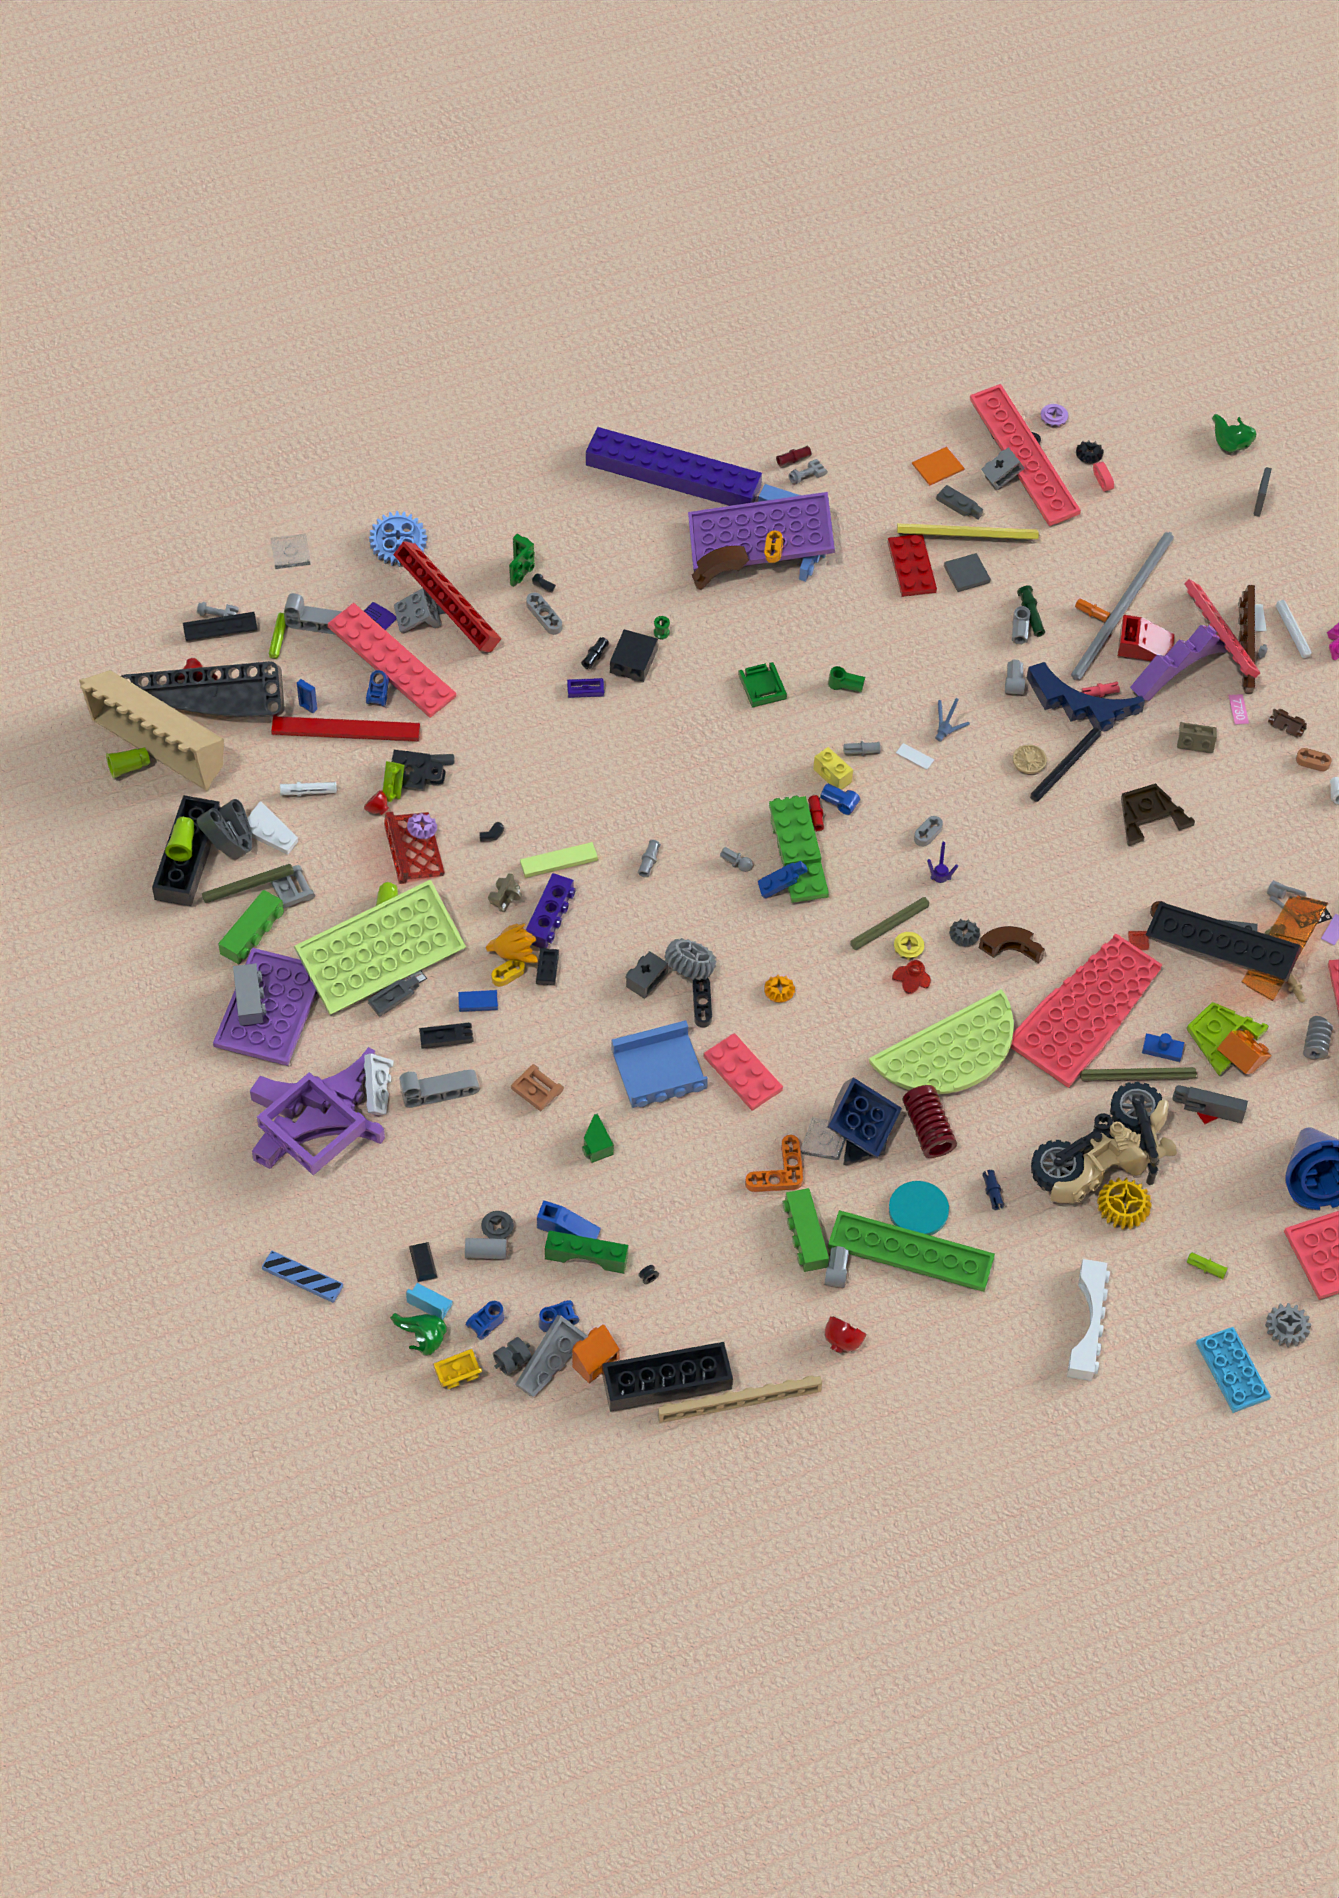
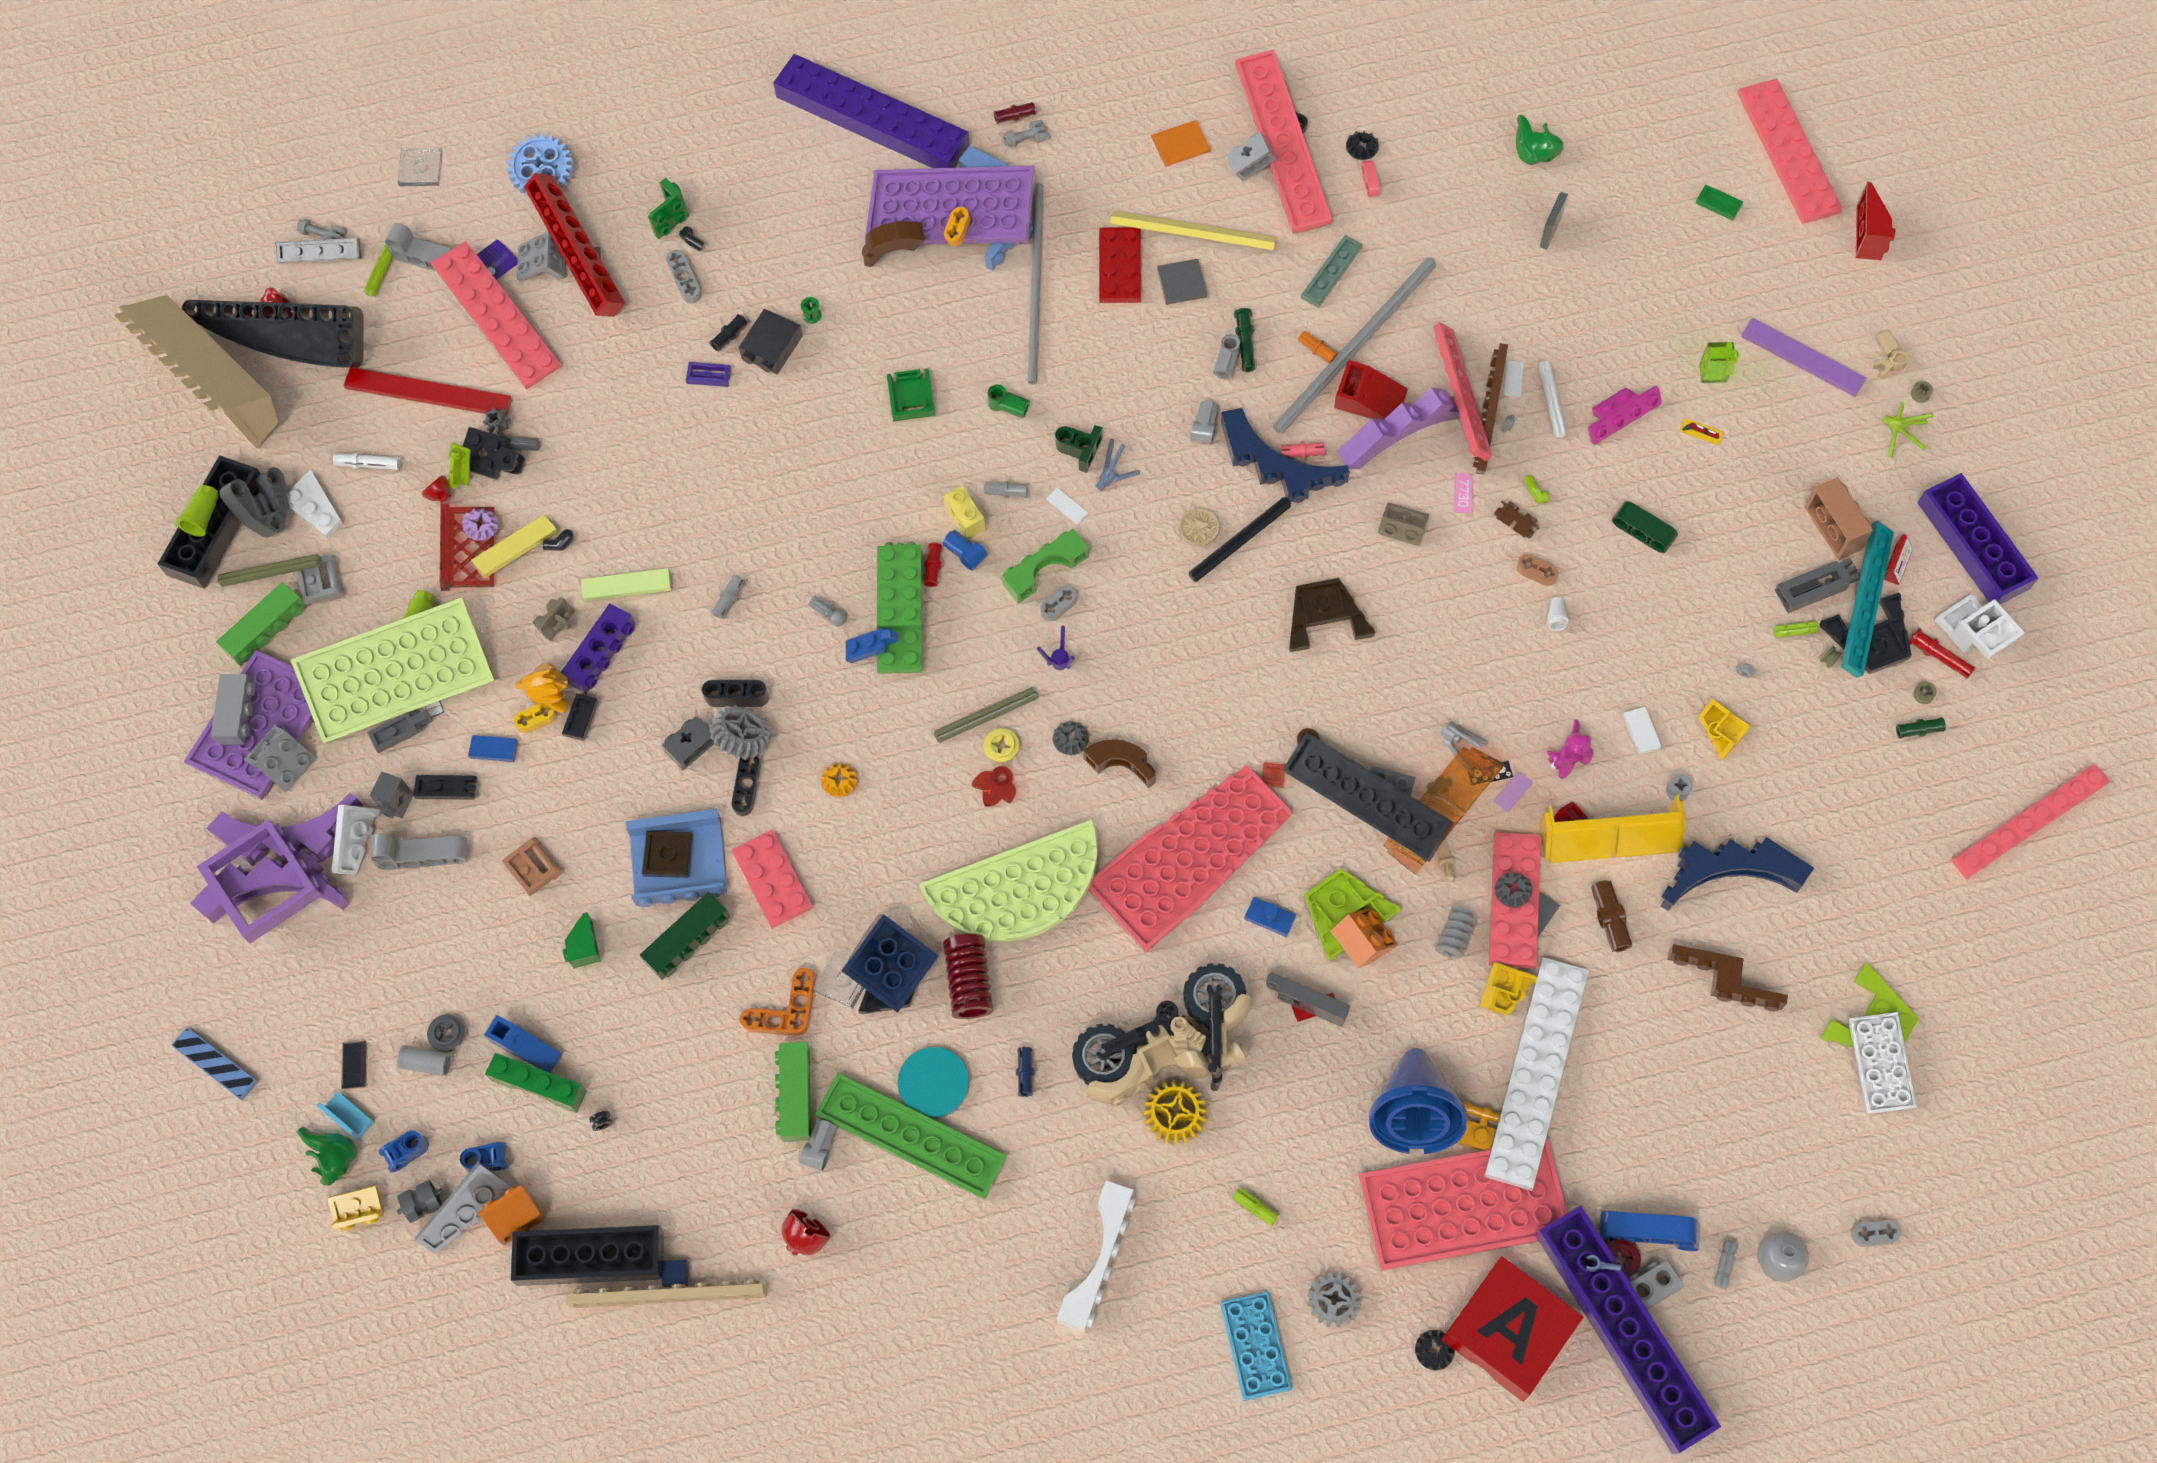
camera: 15 degrees right, 10 degrees up
(127, 761) = (173, 404): lime plant -> none
(298, 1027) = (280, 758): none -> light grey bracket
(306, 696) = (388, 349): blue tile -> none
(377, 690) = (472, 350): blue piece -> none
(404, 1044) = (391, 795): none -> dark grey brick
(413, 738) = (498, 426): none -> dark grey gear
(455, 840) = (514, 546): none -> light yellow tile
(650, 1063) = (667, 854): none -> dark brown tile
(683, 926) = (727, 687): none -> black beam
(684, 1122) = (685, 936): none -> dark green brick
(741, 1381) = (674, 1272): none -> dark blue tile
(847, 597) = (1035, 284): none -> light grey piece
(913, 706) = (1076, 440): none -> dark green tile
(924, 789) = (1065, 550): none -> bright green arch
(959, 502) = (1193, 192): dark grey hinge -> none
(1048, 411) = (1326, 88): lavender gear -> none
(1088, 551) = (1331, 271): none -> sand green tile
(1138, 1074) = (1232, 947): olive axle -> none
(1300, 703) = (1532, 487): none -> lime arm

